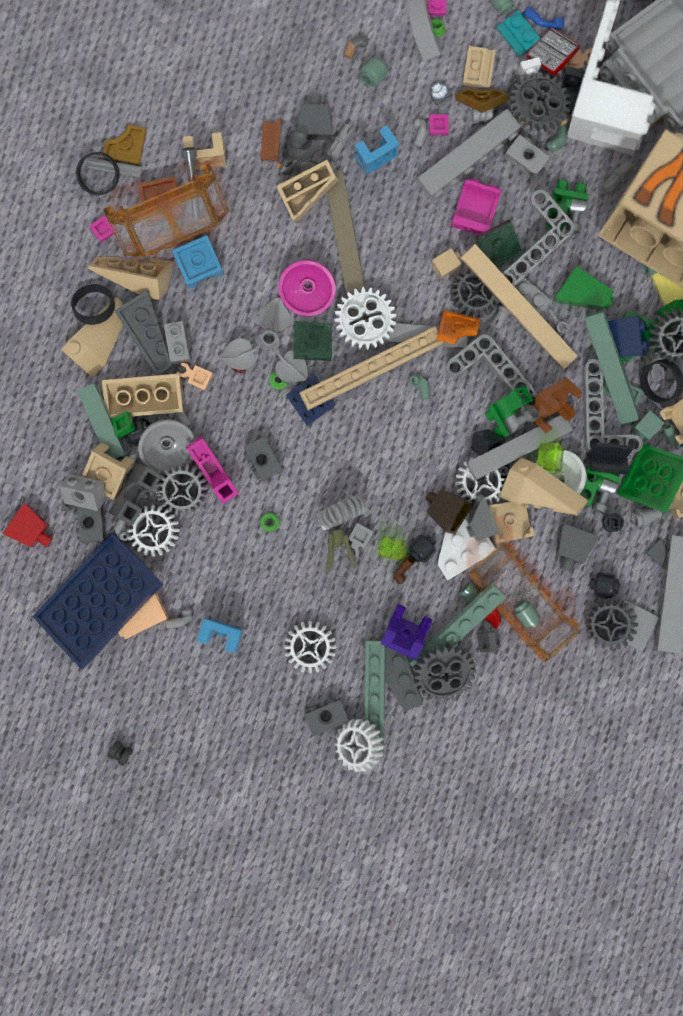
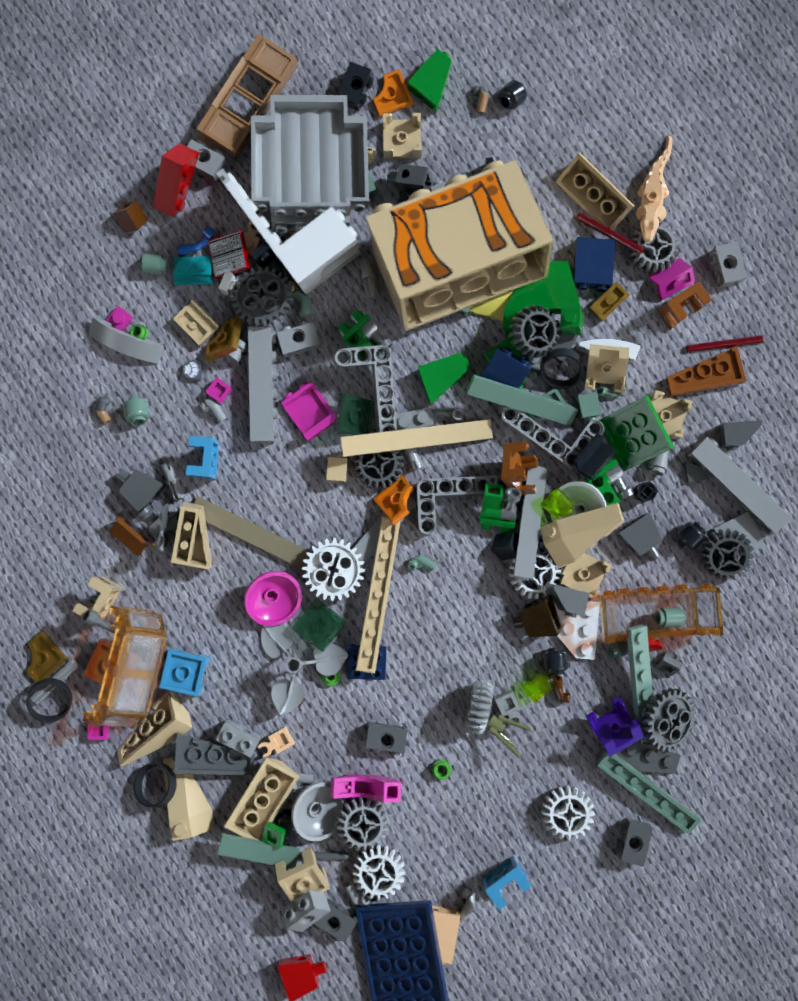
camera: 55 degrees left, 0 degrees up
(127, 503) = (342, 881): dark grey arch -> none
(365, 739) = (678, 840): white gear -> none

